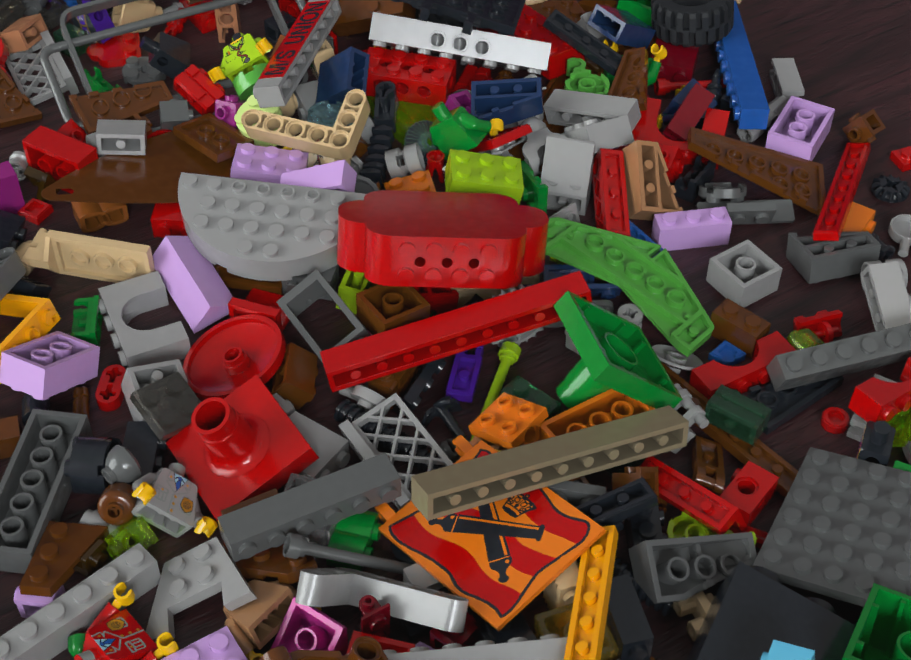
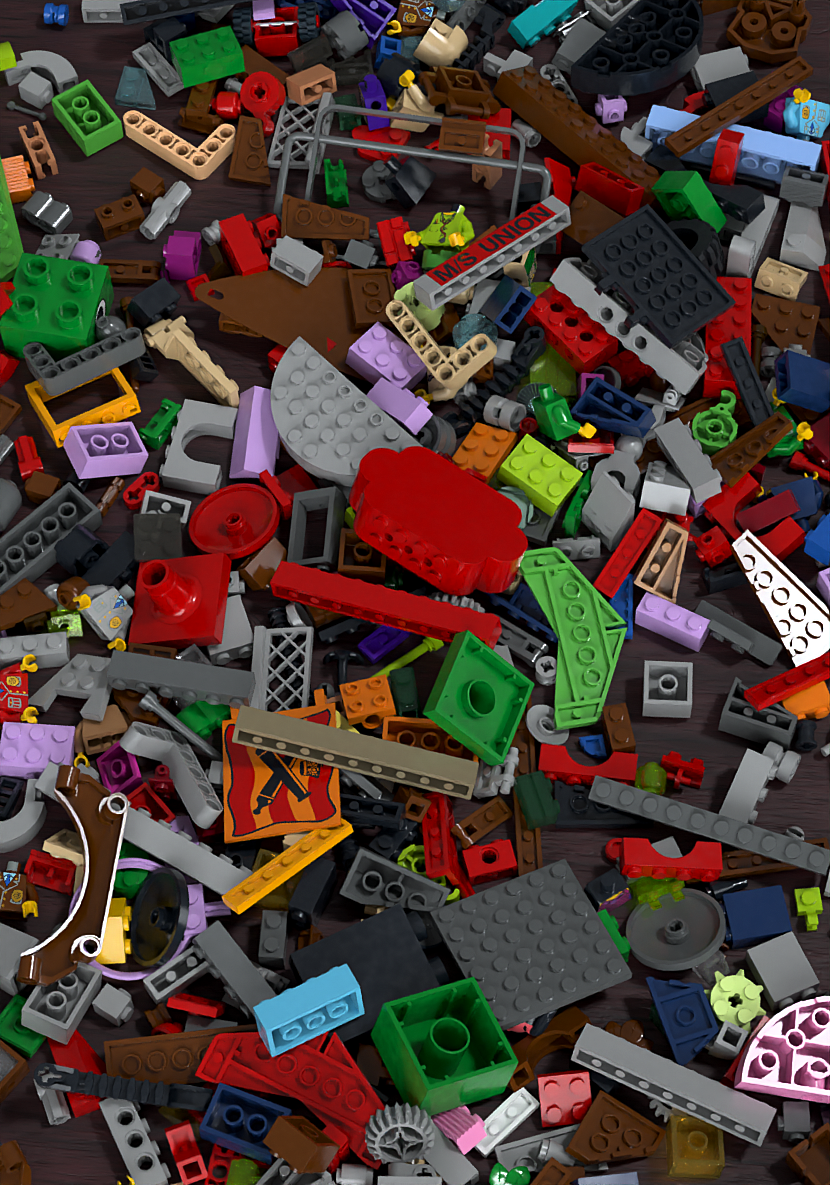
camera: 40 degrees right, 15 degrees up
(121, 466) = (89, 568): dark grey brick -> none
(715, 191) = (732, 602): dark grey plate -> none

